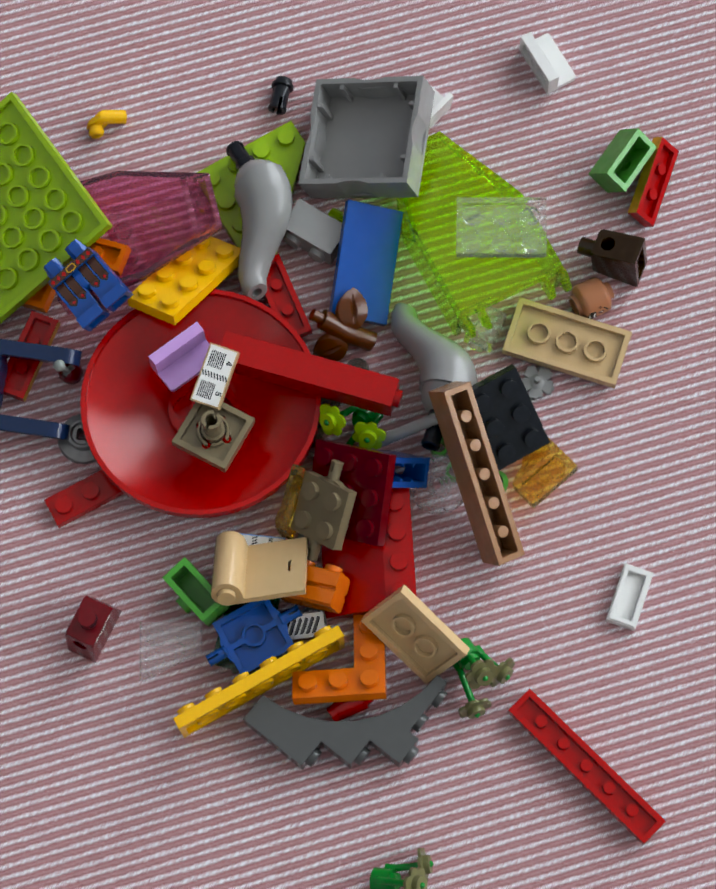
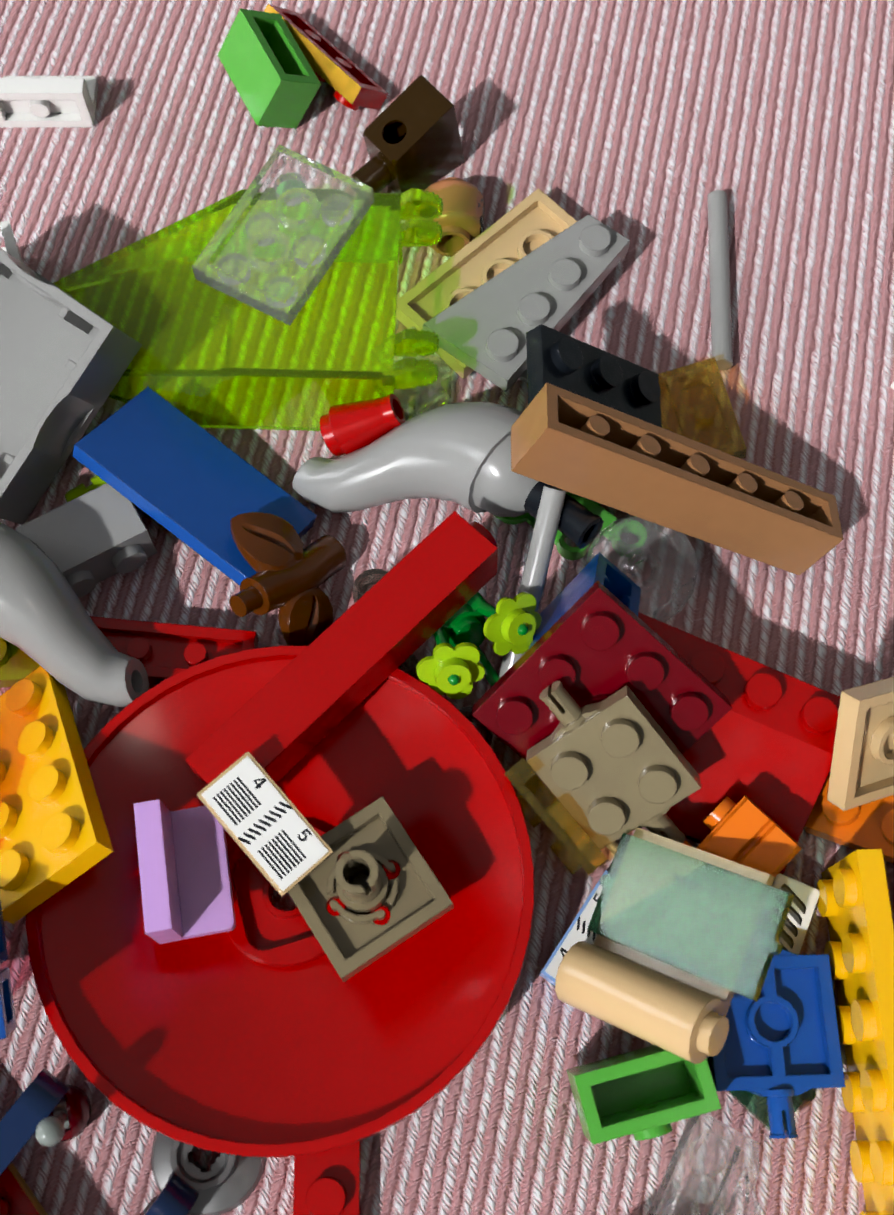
camera: 65 degrees left, 5 degrees down
(274, 570) = (691, 915): none -> clear green piece
(436, 316) = (360, 423): none -> red cone
(557, 361) = (542, 288): none -> light grey wing
(637, 450) = (720, 279): none -> light grey bar

